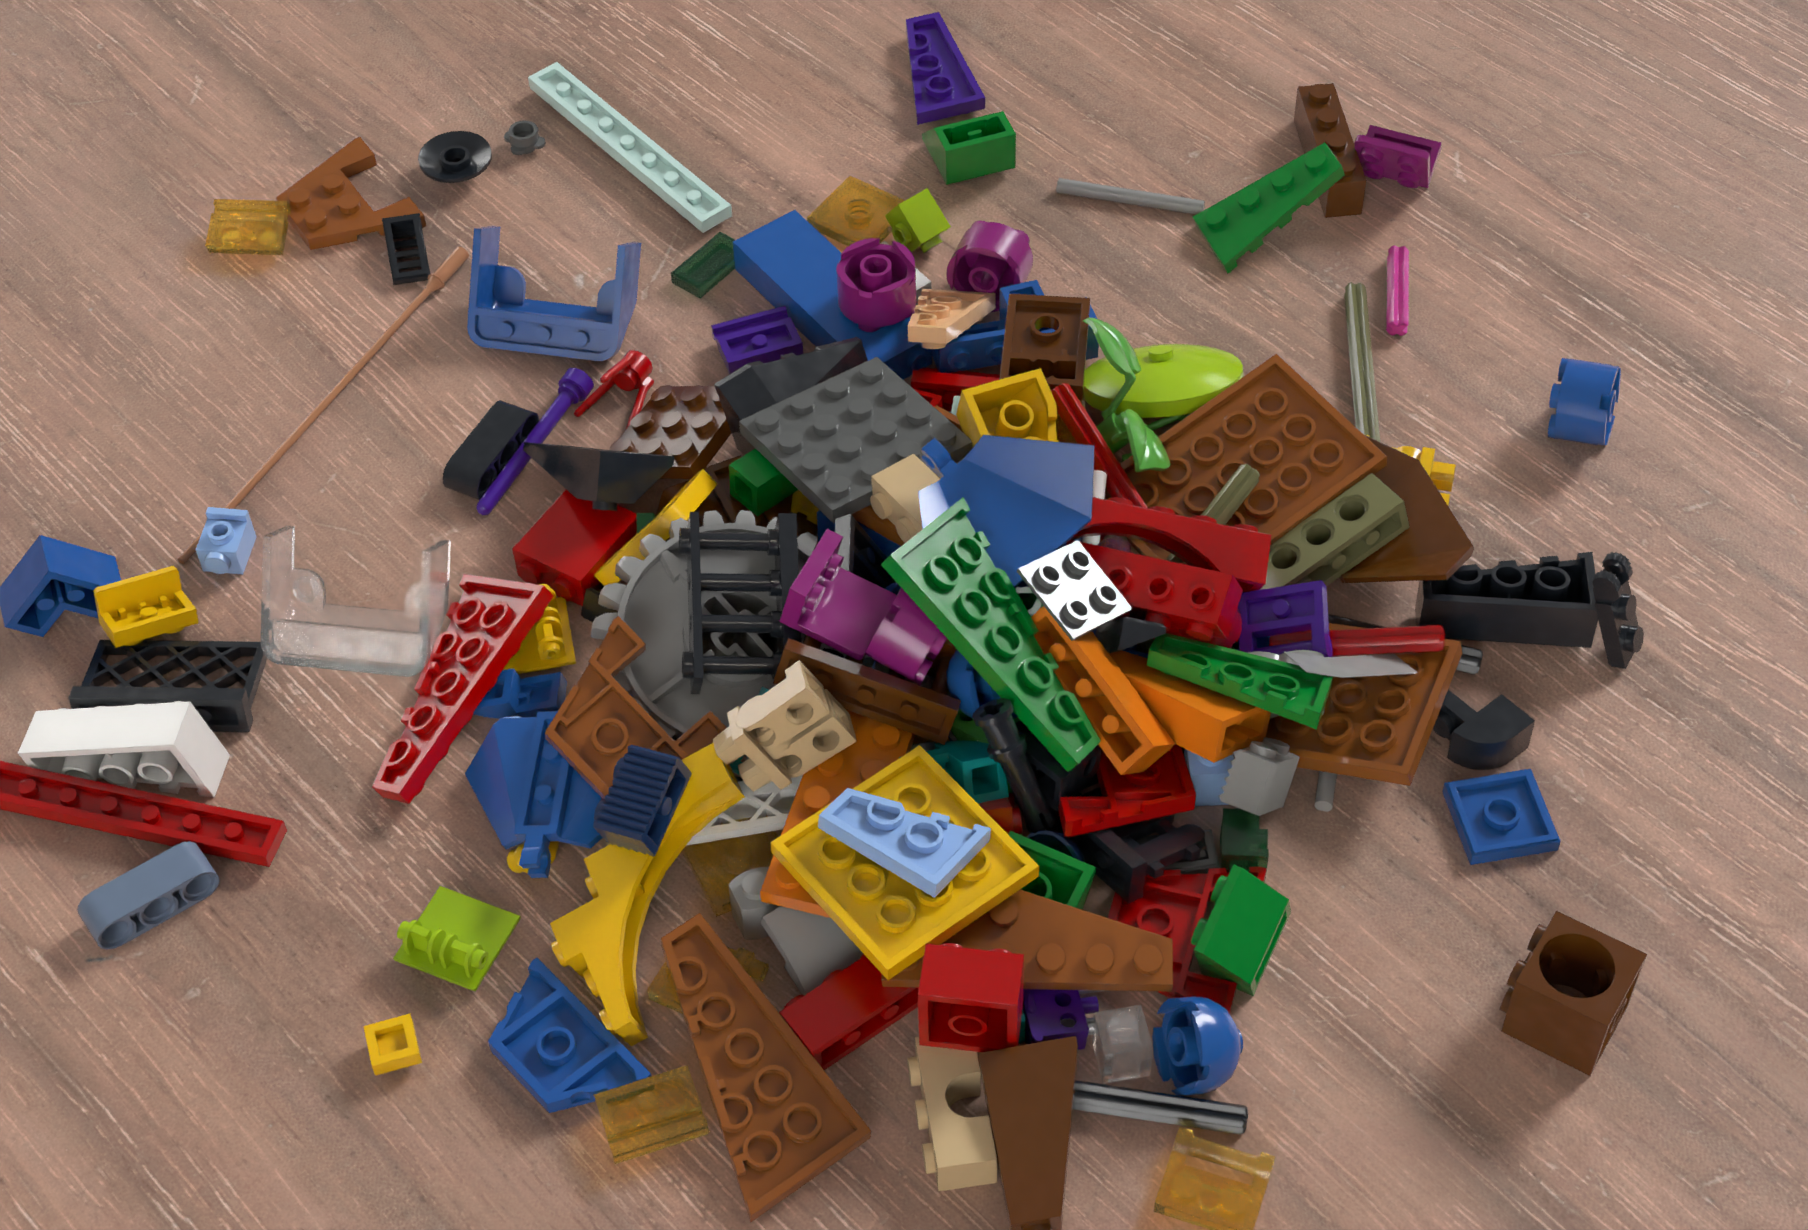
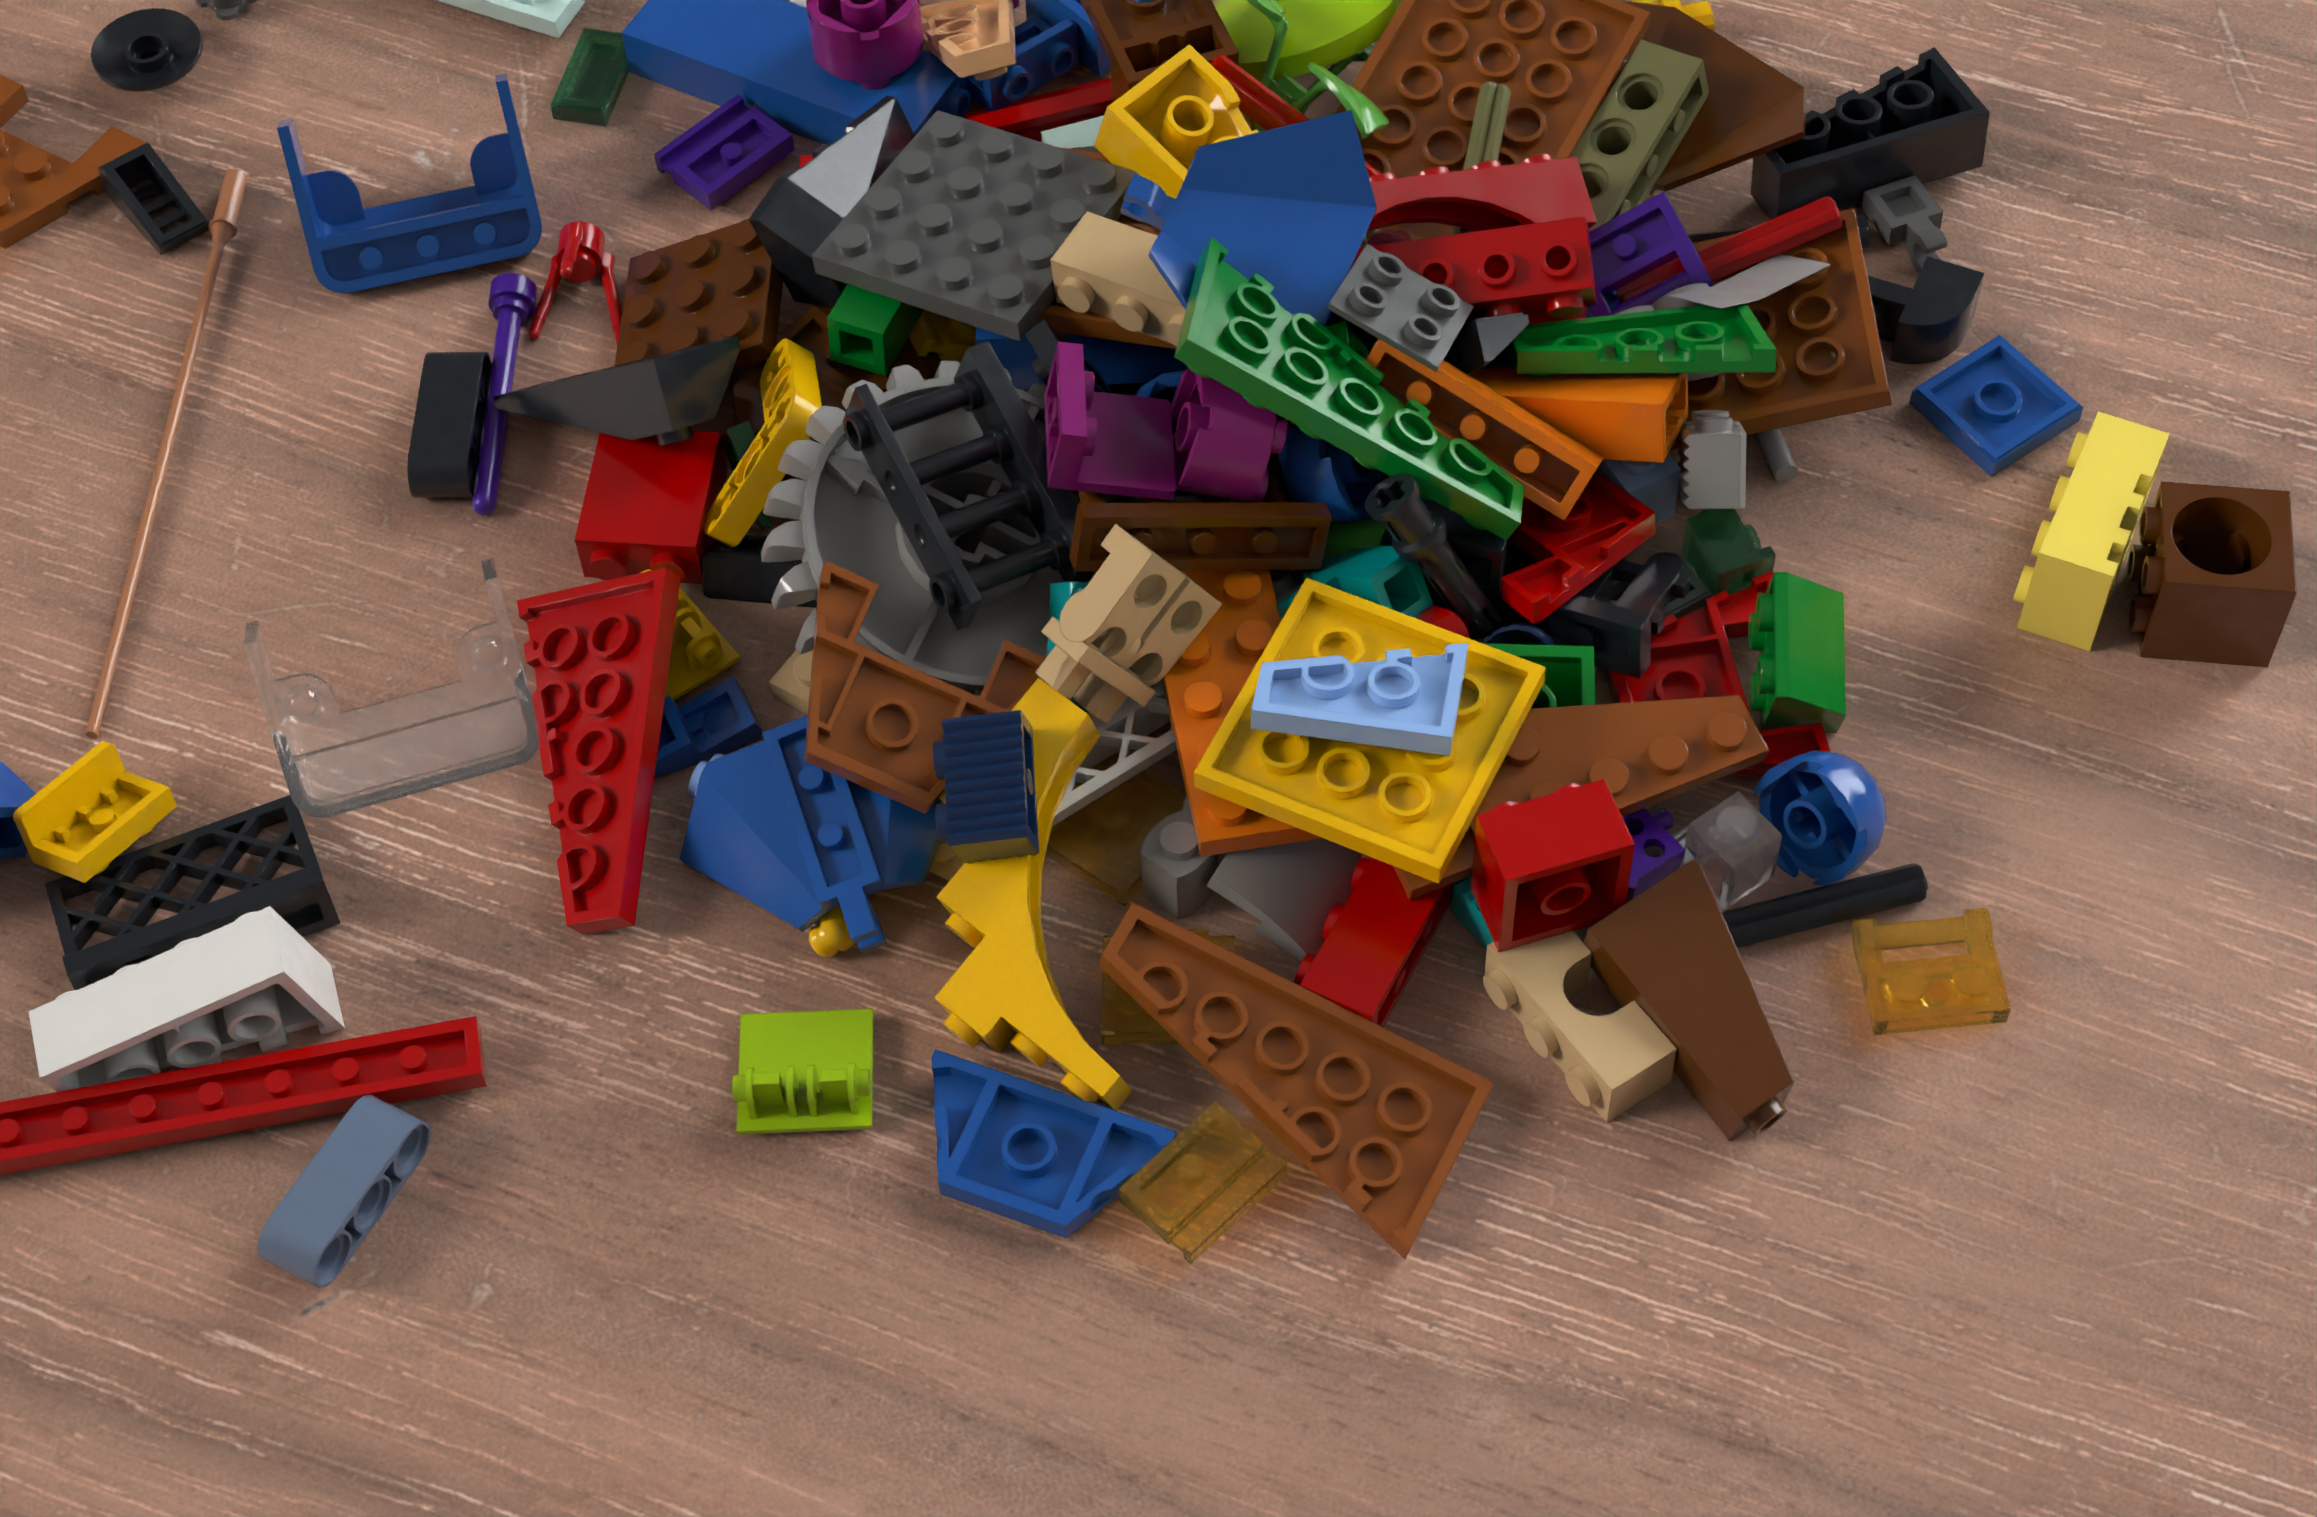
camera: 25 degrees left, 5 degrees up
(226, 541) = (147, 681): light blue brick -> none
(392, 1044) = (809, 1240): yellow plate -> none
(1485, 939) = (2090, 531): none -> light yellow wedge
(1515, 661) = (1907, 213): none -> dark grey plate
(1617, 610) = (2007, 104): black hinge -> none

